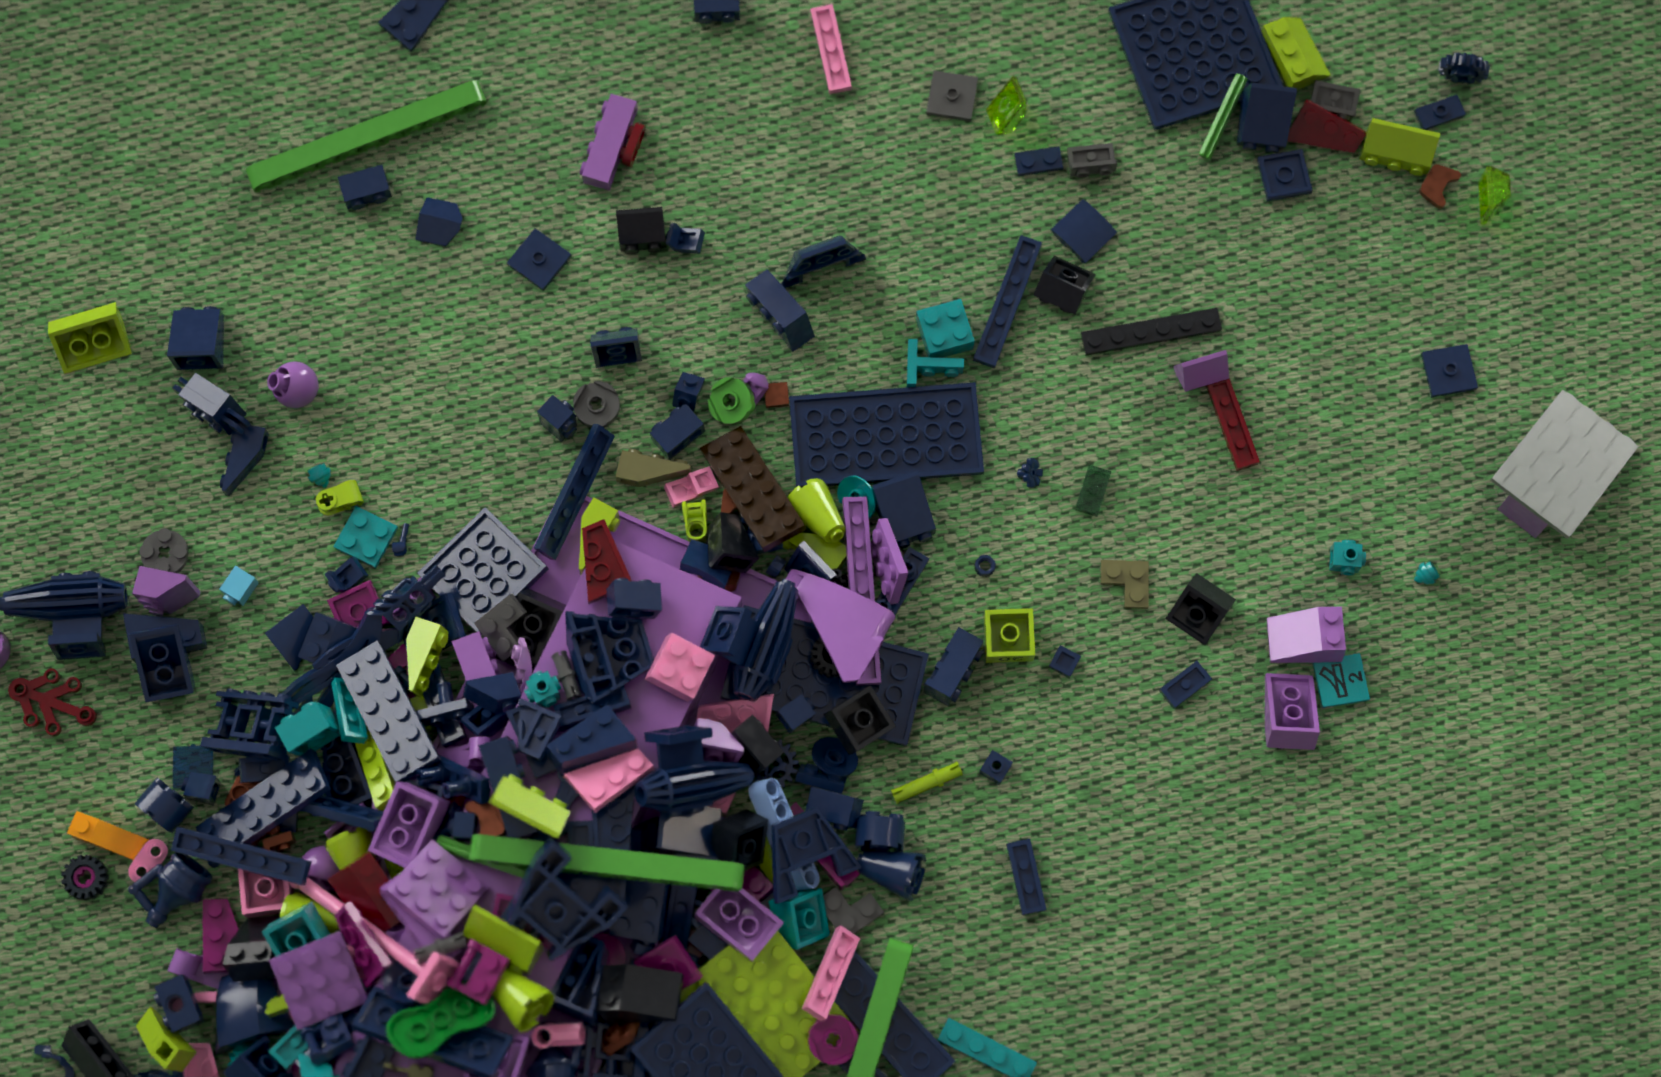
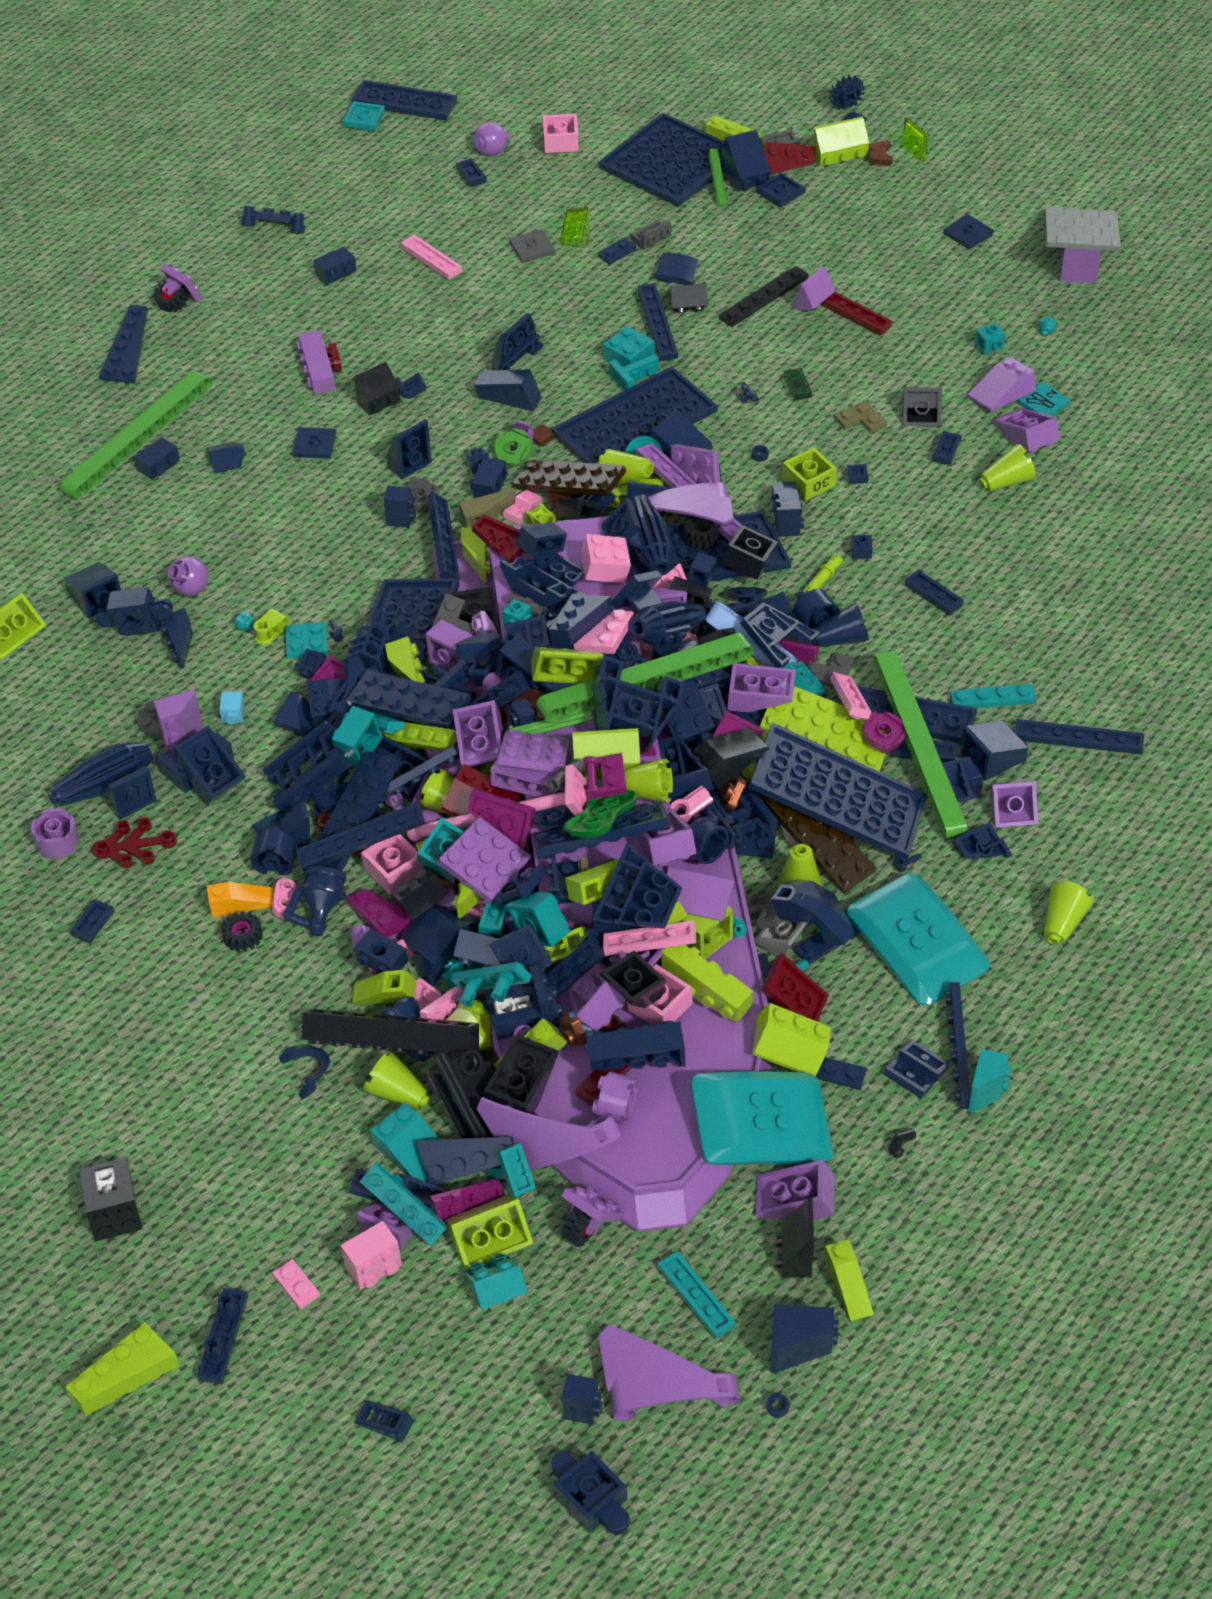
camera: 30 degrees left, 25 degrees down
(1221, 763) = (1008, 470): none -> lime cone

